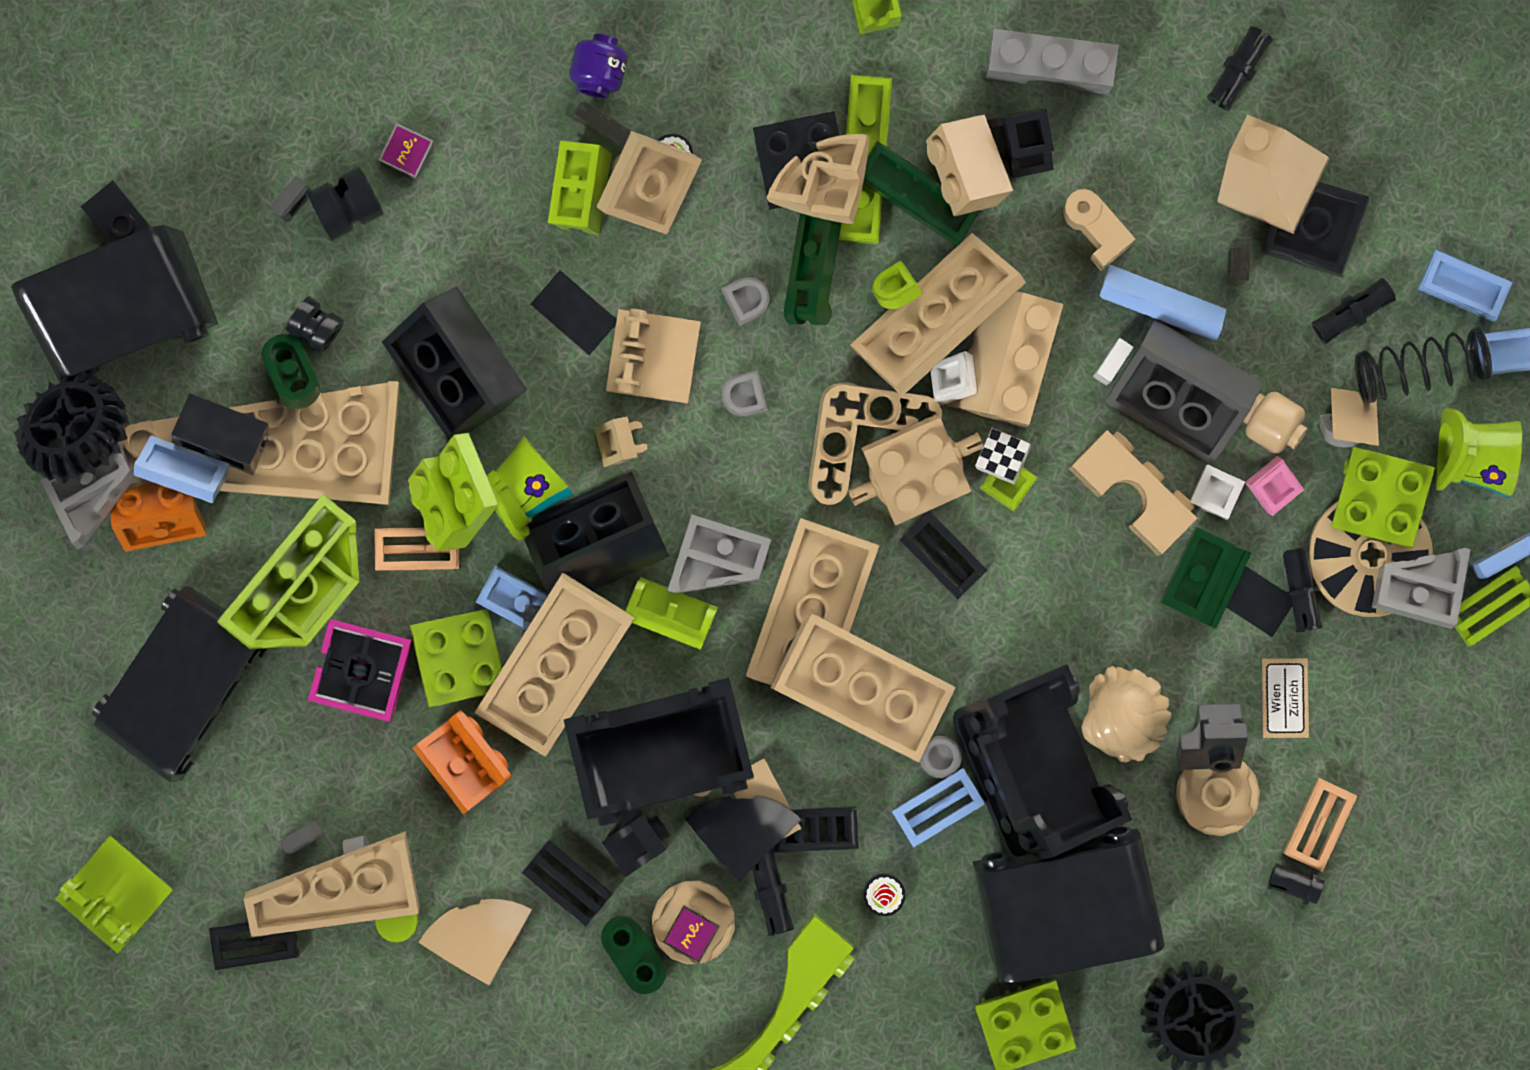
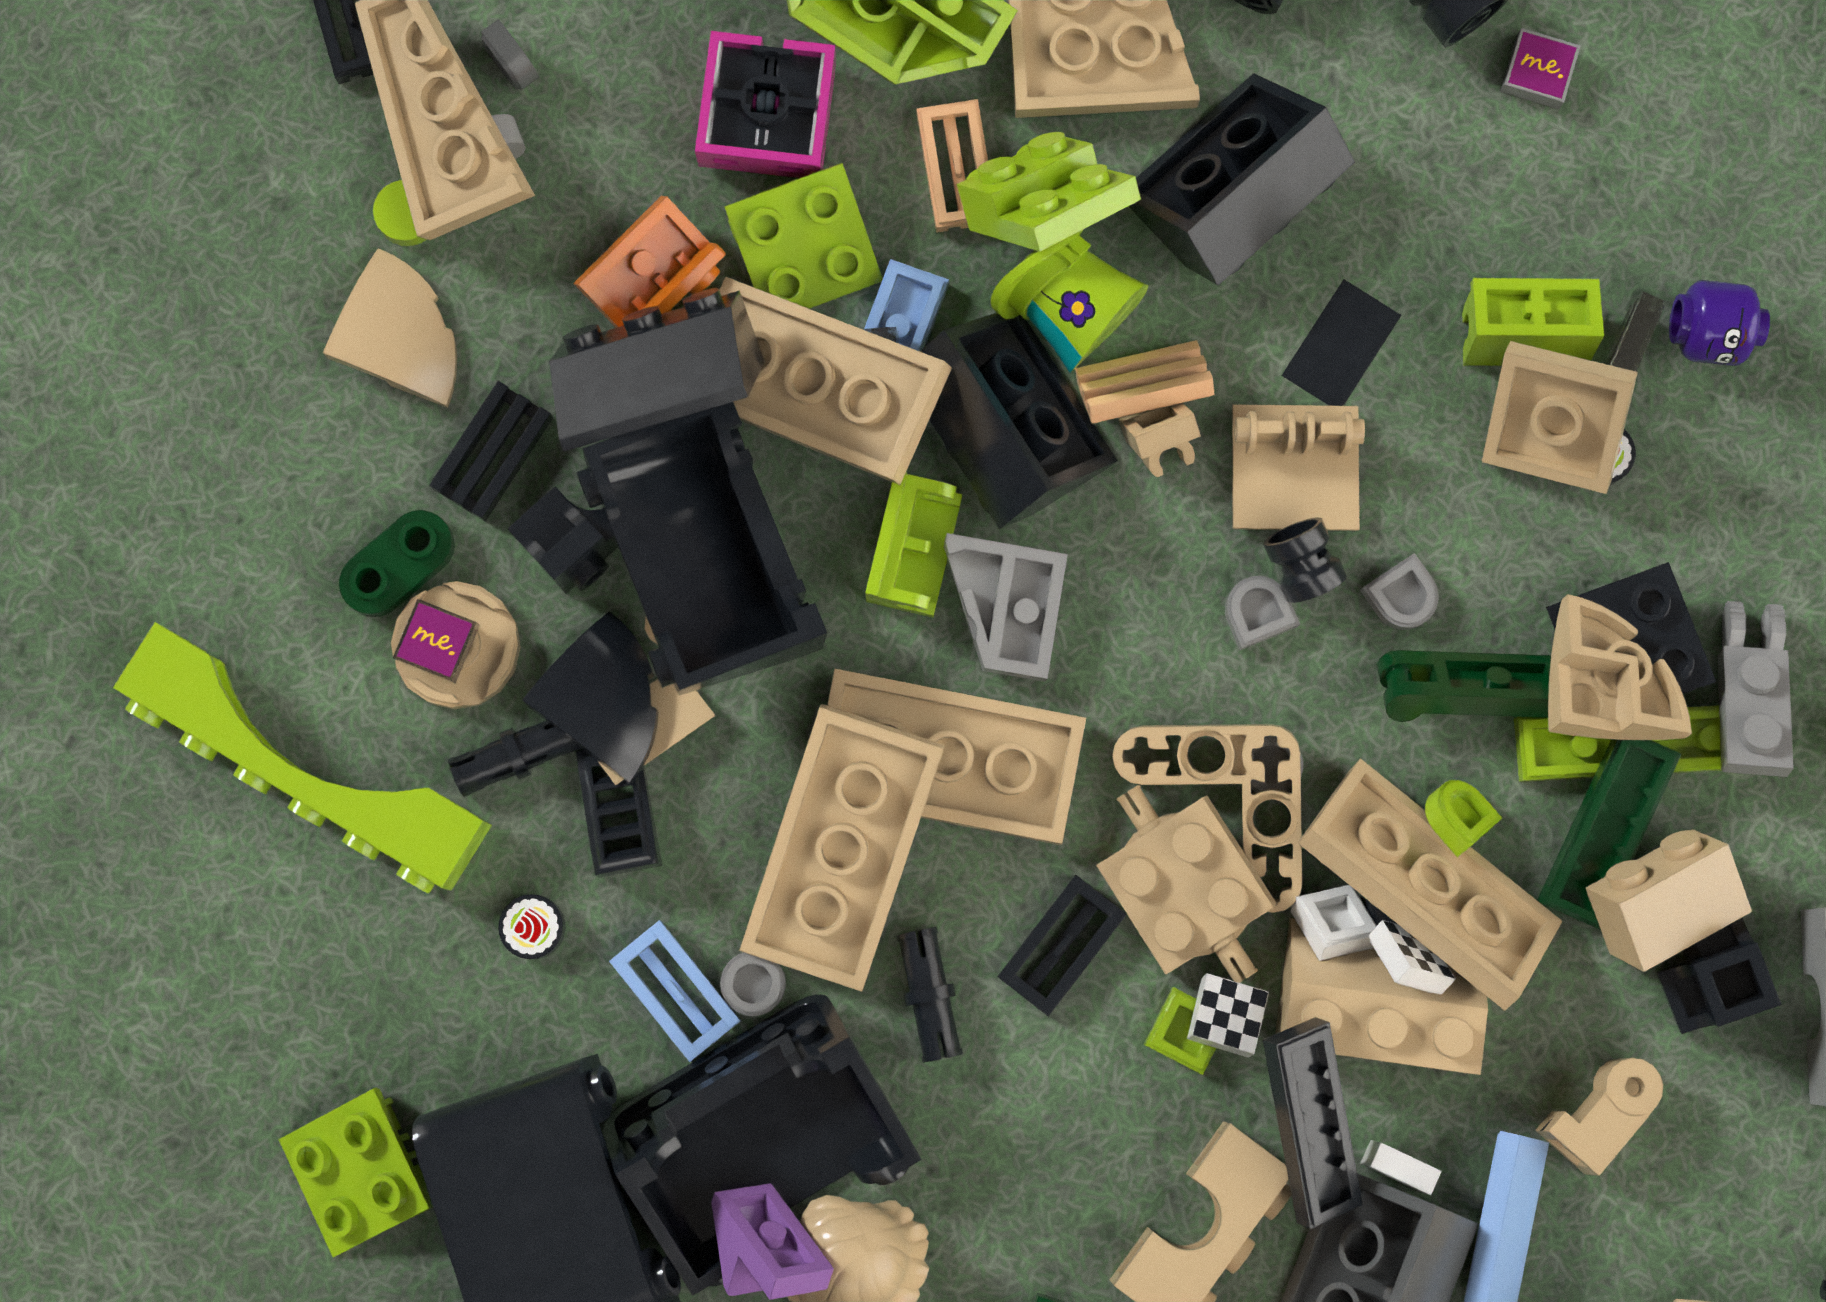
camera: 80 degrees right, 5 degrees down
(537, 766) = (653, 368): none -> black slope
(577, 447) = (1144, 382): none -> light nougat tile
(717, 361) = (1305, 561): none -> black wheel
(846, 86) = (1754, 695): none -> light grey hinge
(963, 644) = (929, 994): none -> black pin
(986, 337) = (1409, 960): none -> white tile
(1078, 414) = (1312, 1122): none -> black plate
(1107, 769) = (765, 1245): none -> medium lavender slope

